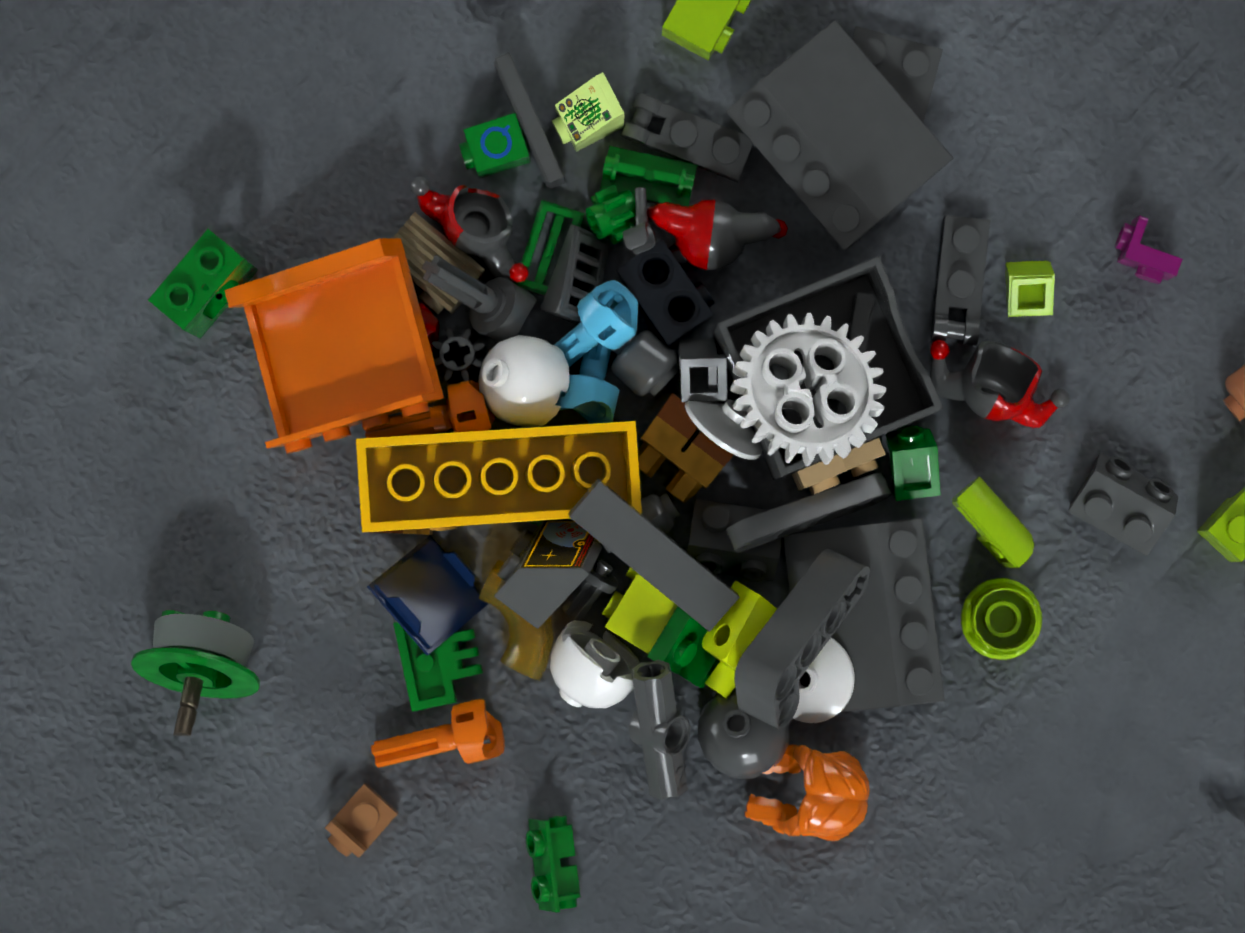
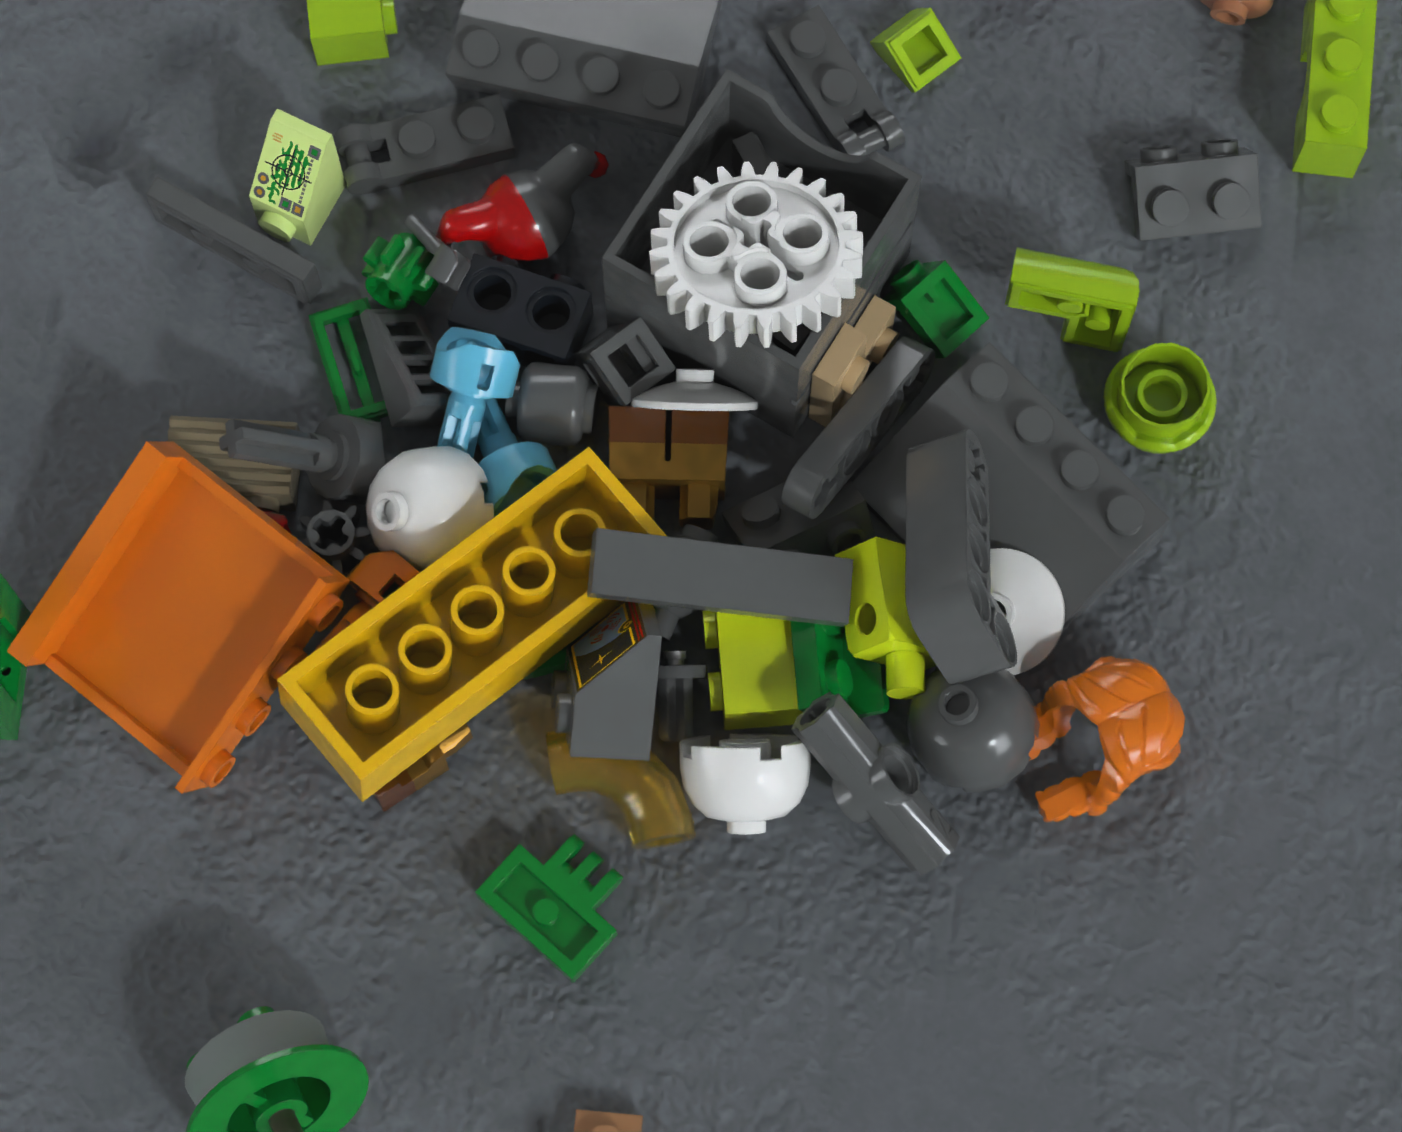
camera: 35 degrees left, 15 degrees down
(429, 594) = (494, 827): dark blue piece -> none
(467, 732) = (657, 952): orange piece -> none
(474, 223) = (248, 384): dark grey piece -> none
(494, 146) = (214, 291): green brick -> none
(553, 885) = (845, 1020): green hinge -> none
(662, 177) = (424, 197): green hinge -> none
(995, 384) = (968, 158): dark grey piece -> none

